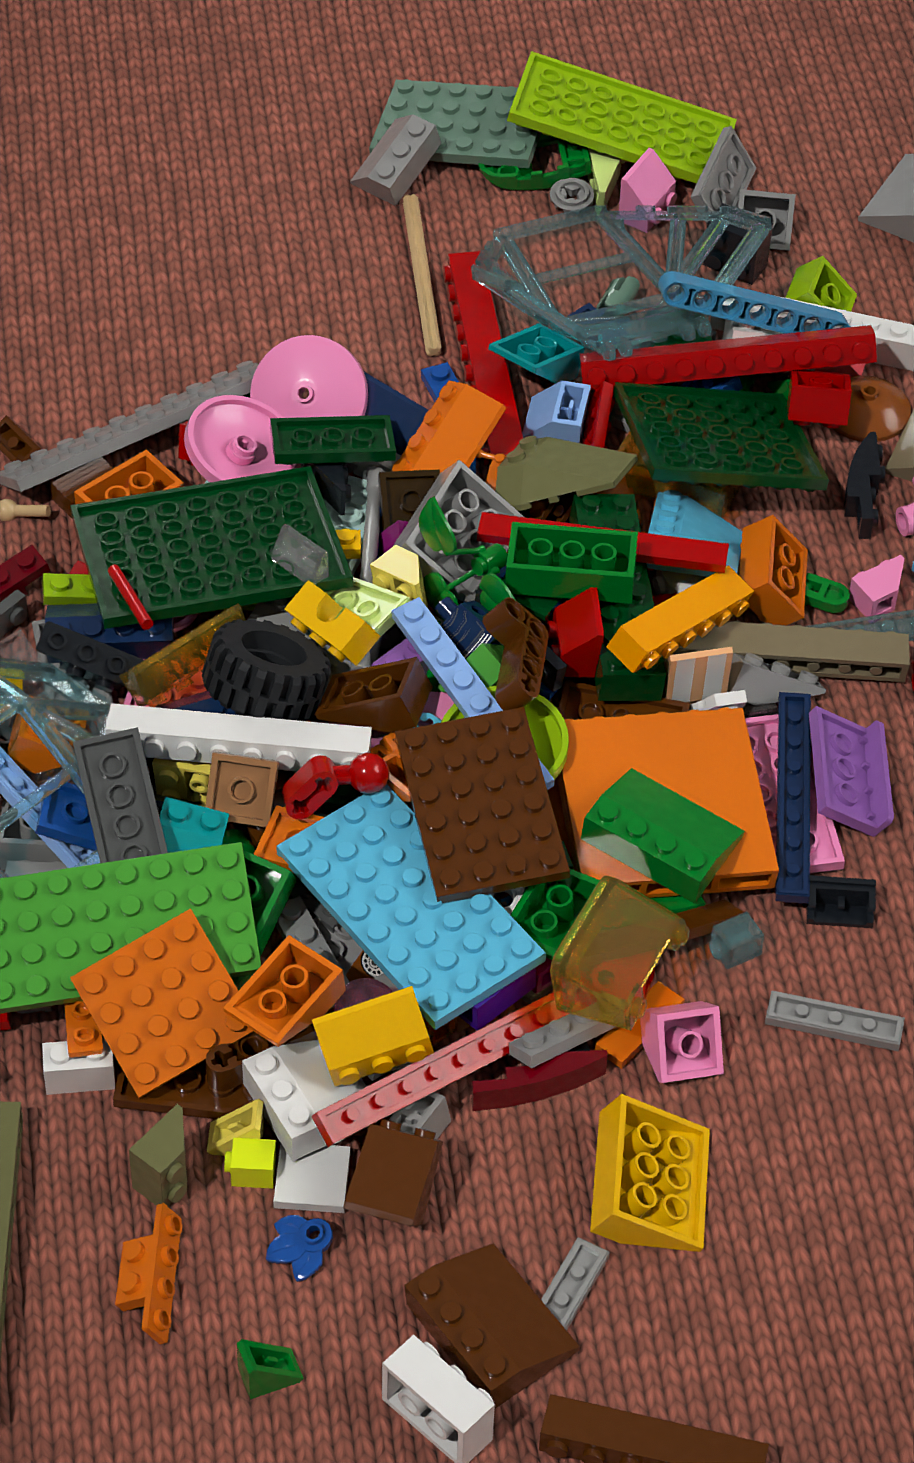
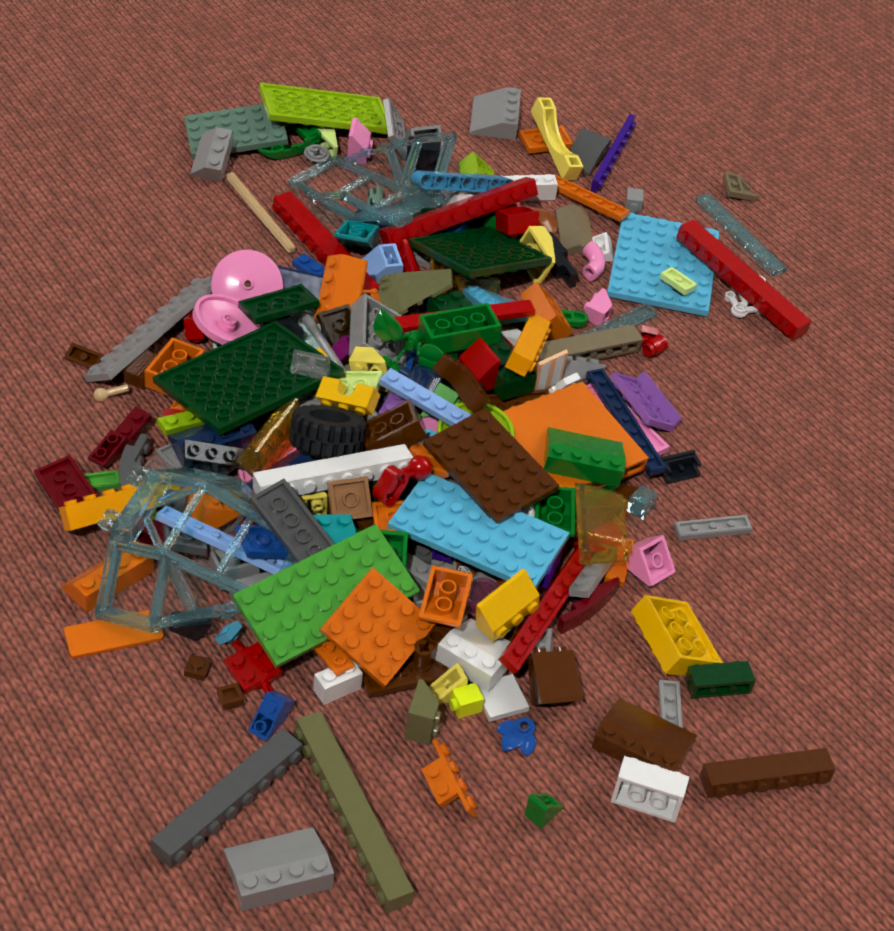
camera: 30 degrees left, 5 degrees down
(130, 597) = (227, 412): red bar -> none
(674, 1272) = (719, 679): none -> dark green brick
(833, 444) = (541, 240): none -> light yellow slope

